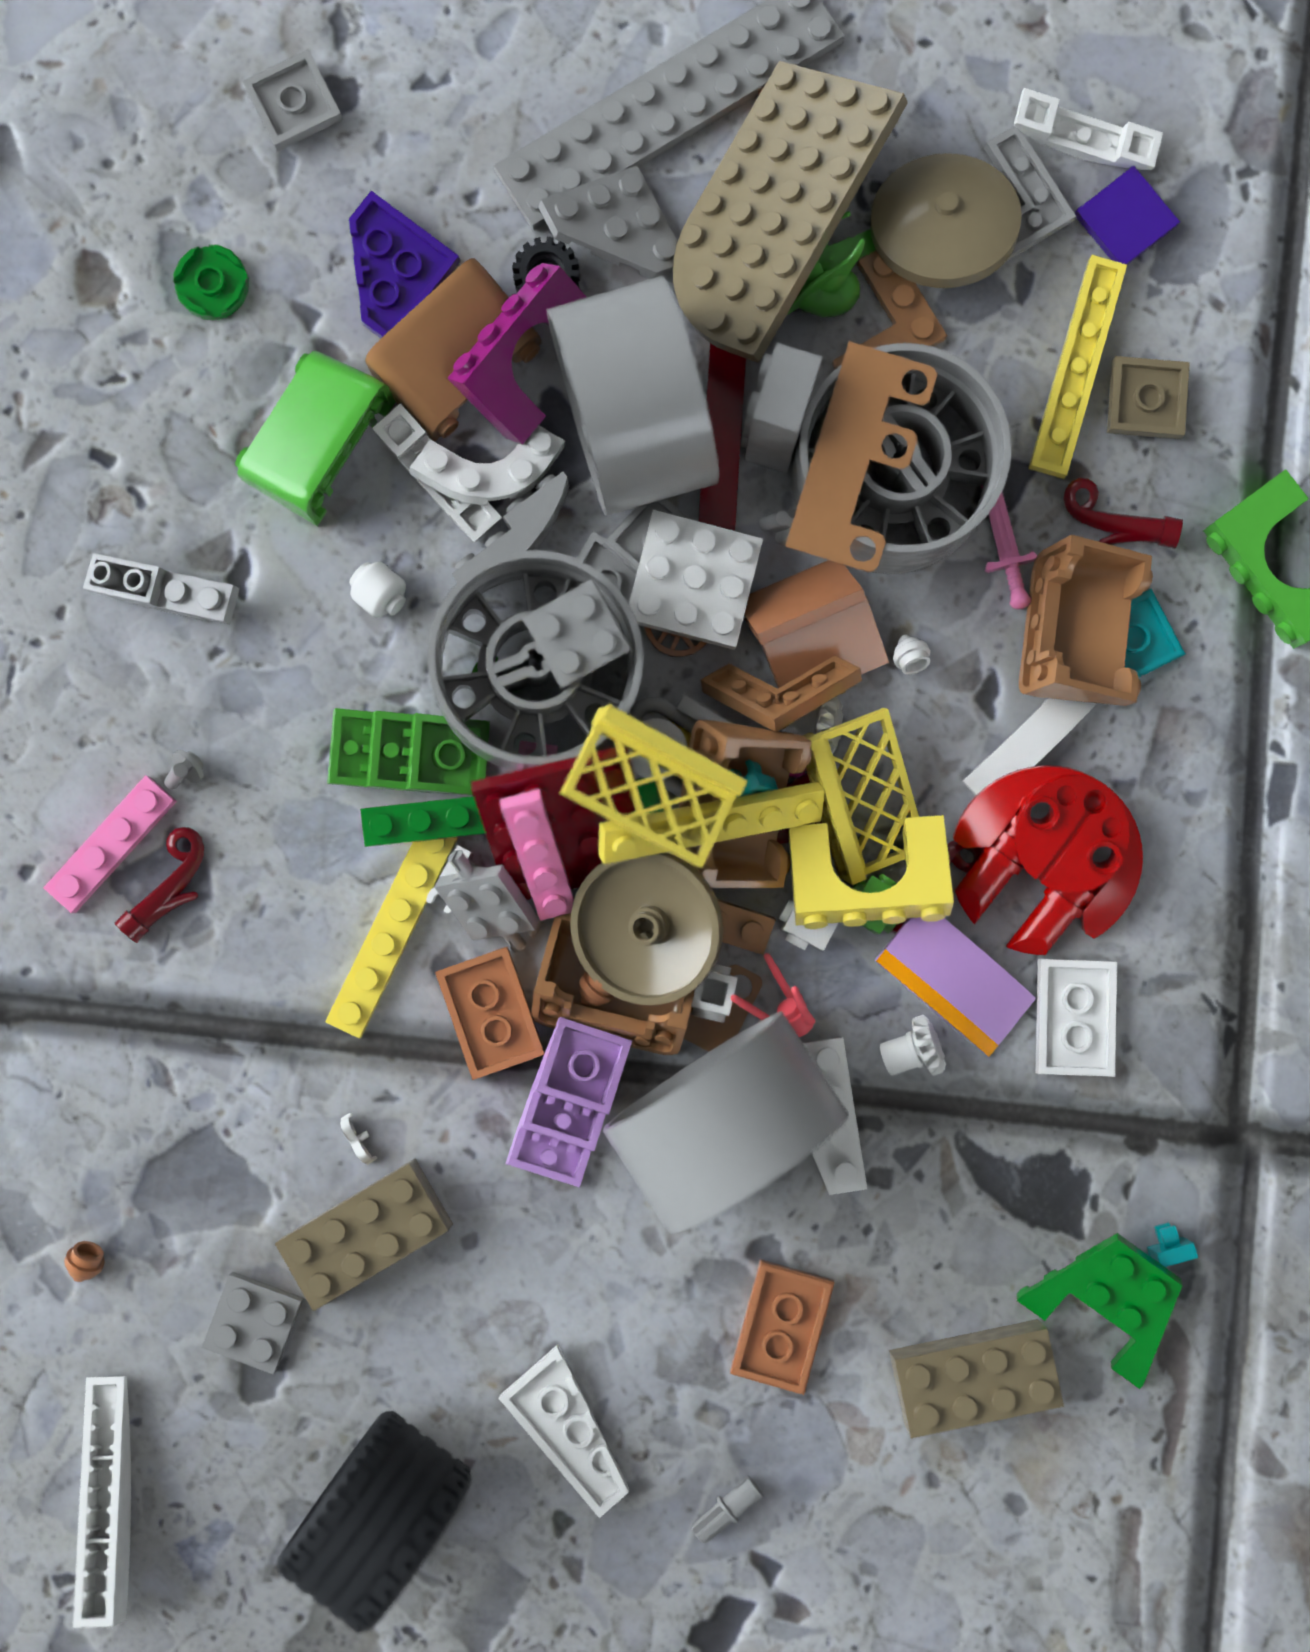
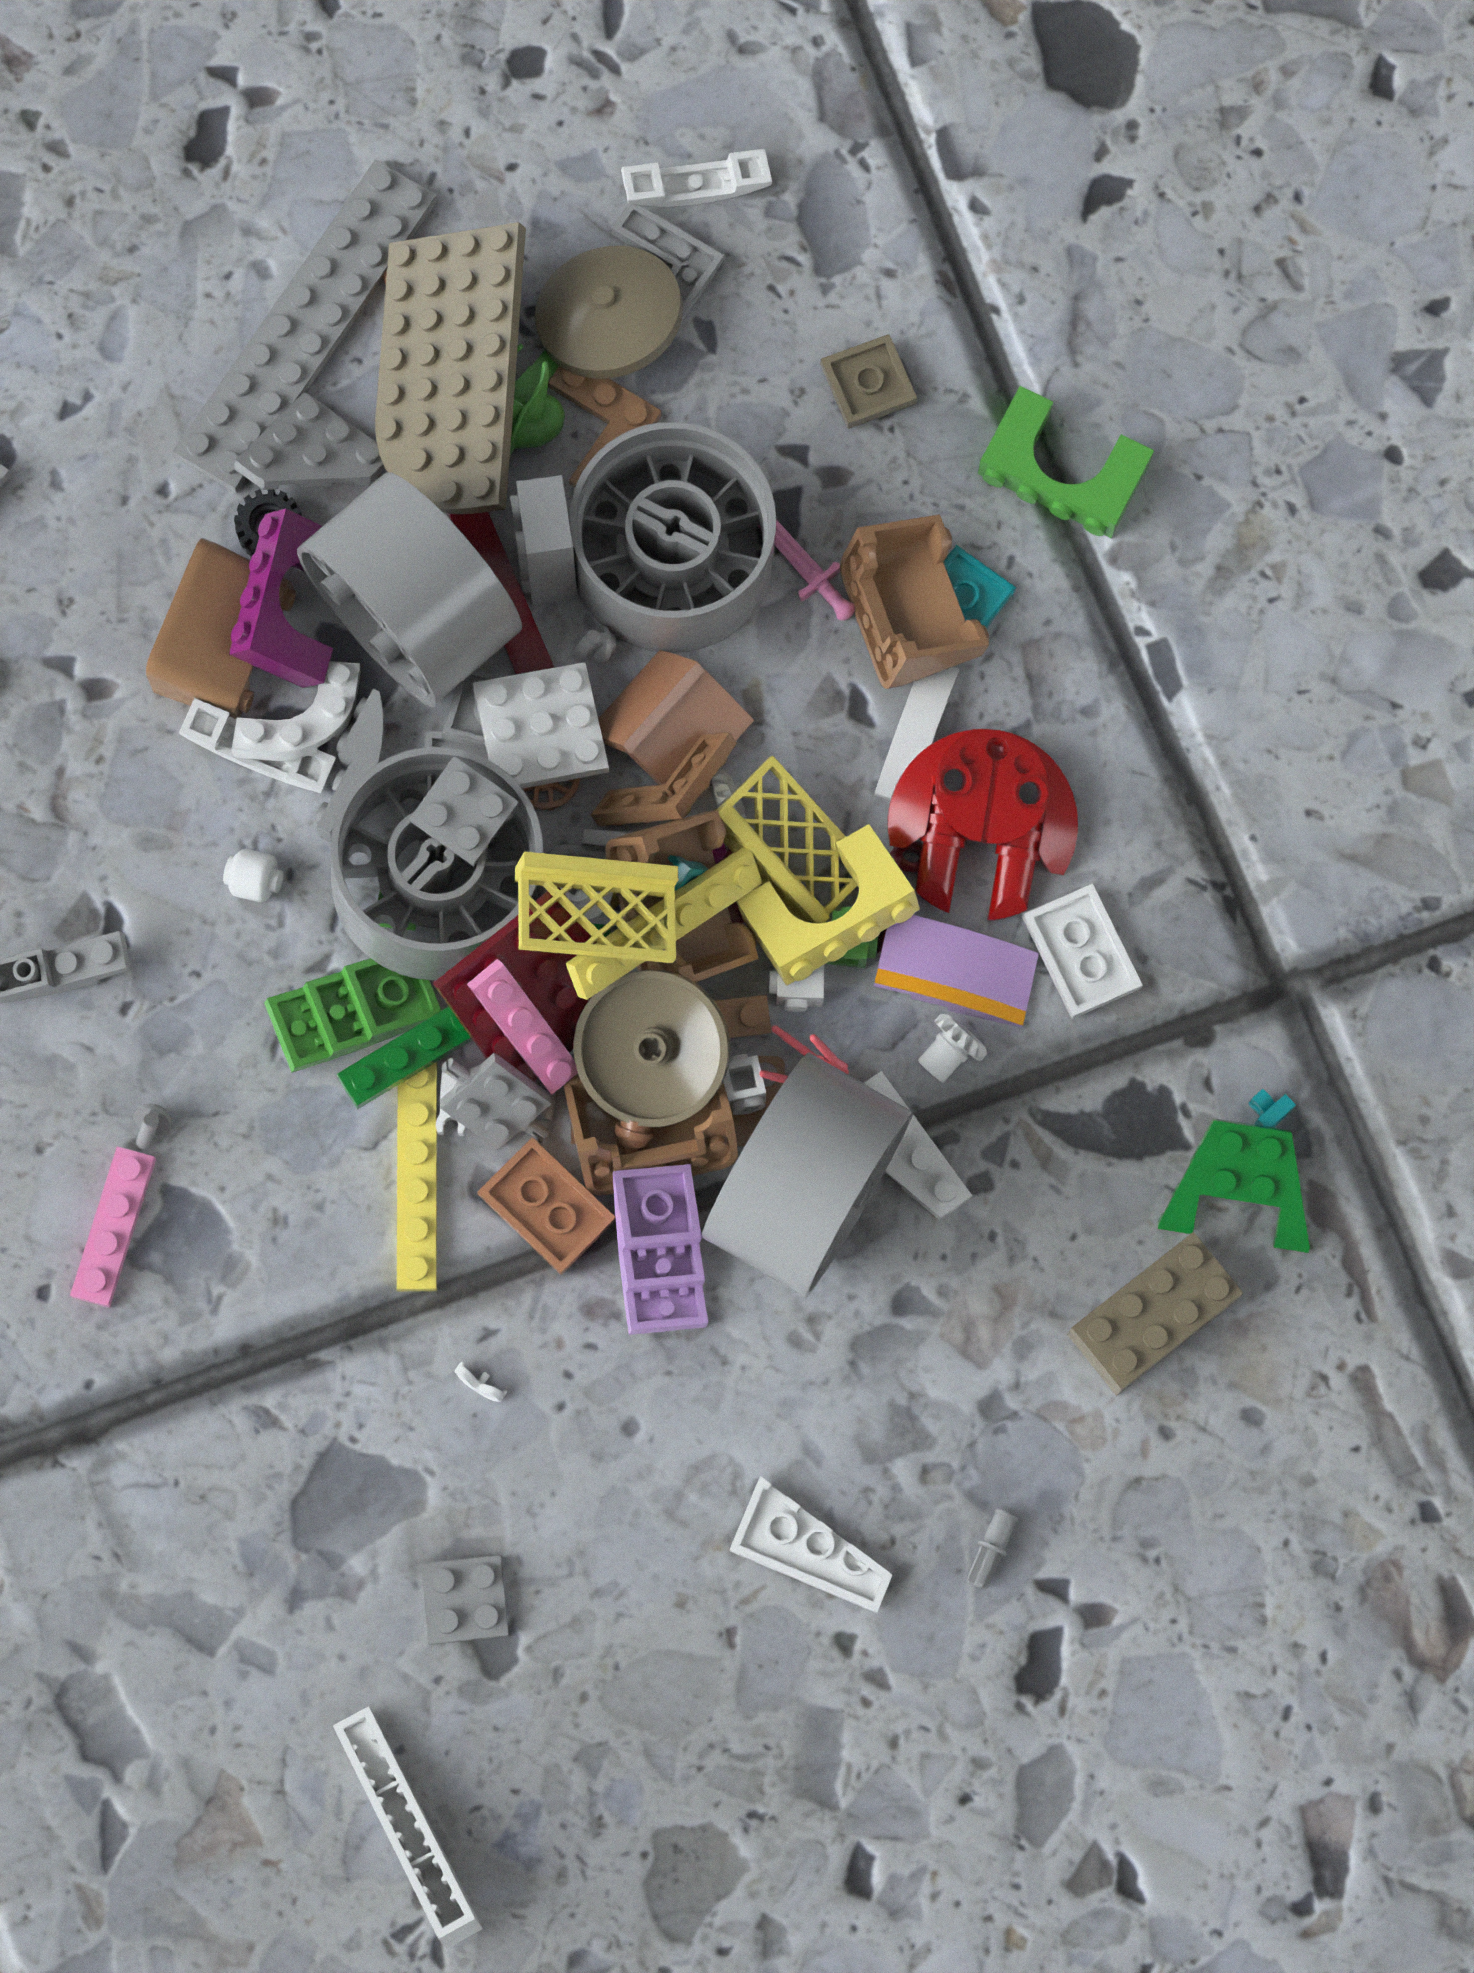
camera: 30 degrees left, 10 degrees down
(84, 1261) = (278, 1620): nougat plate -> none
(167, 895) = (190, 1249): dark red plant -> none
(312, 433) = (124, 765): windscreen -> none
(364, 1234) = (530, 1460): dark tan brick -> none
(375, 1522) = (669, 1689): black tyre -> none
(394, 263) = (125, 581): dark purple plate -> none
(782, 1327) = (958, 1360): nougat tile -> none
(846, 444) = (620, 540): medium nougat piece -> none
(911, 655) = (771, 704): white plate -> none
(1077, 366) = (792, 384): light yellow plate -> none
(1124, 527) = (904, 503): dark red plant -> none
(1126, 217) = (770, 236): dark purple tile -> none

